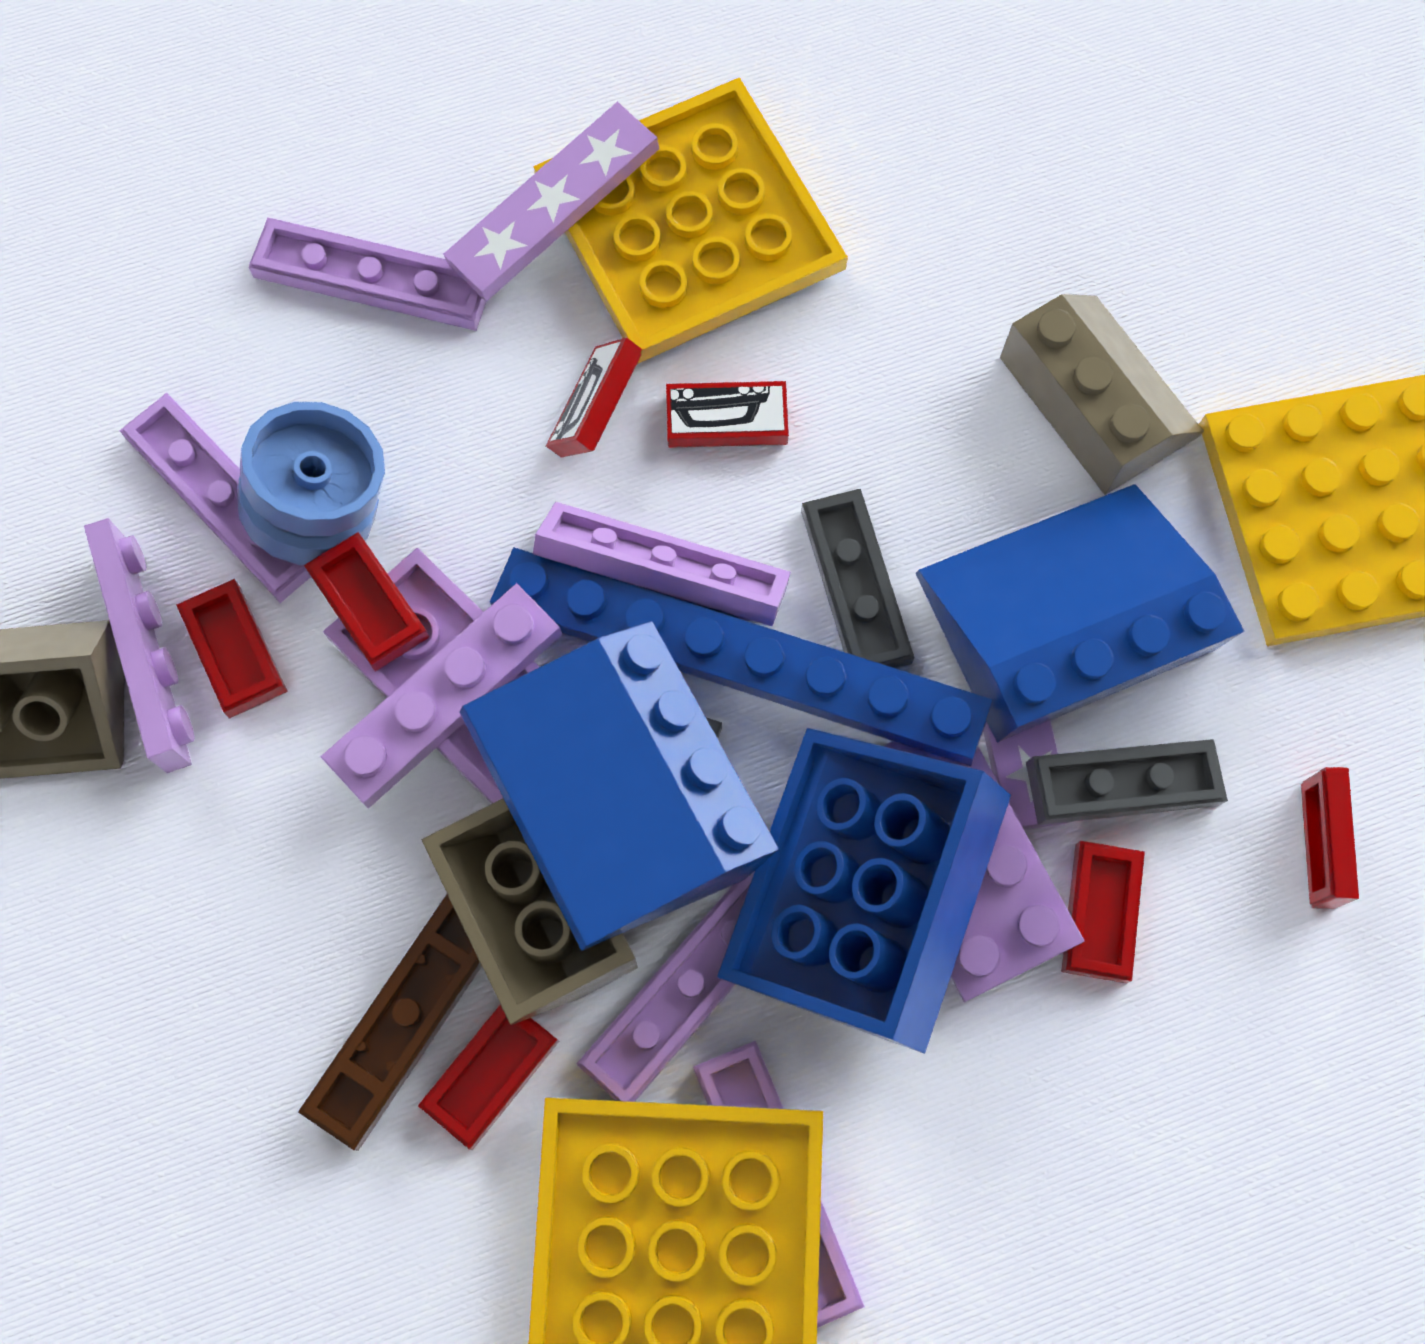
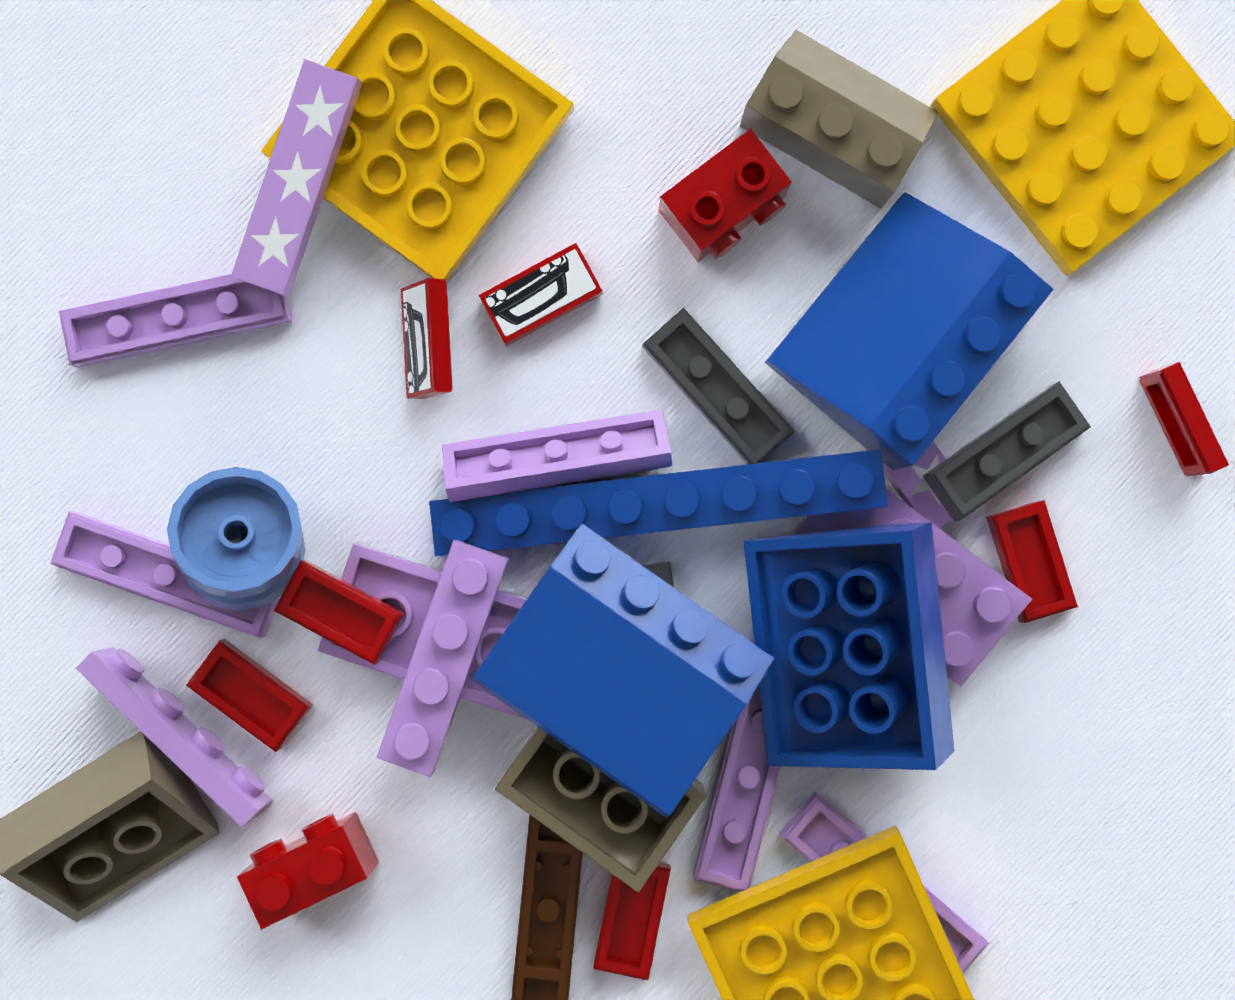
camera: 25 degrees left, 15 degrees up
(186, 839) = (308, 870): none -> red brick
(952, 405) = (725, 197): none -> red brick

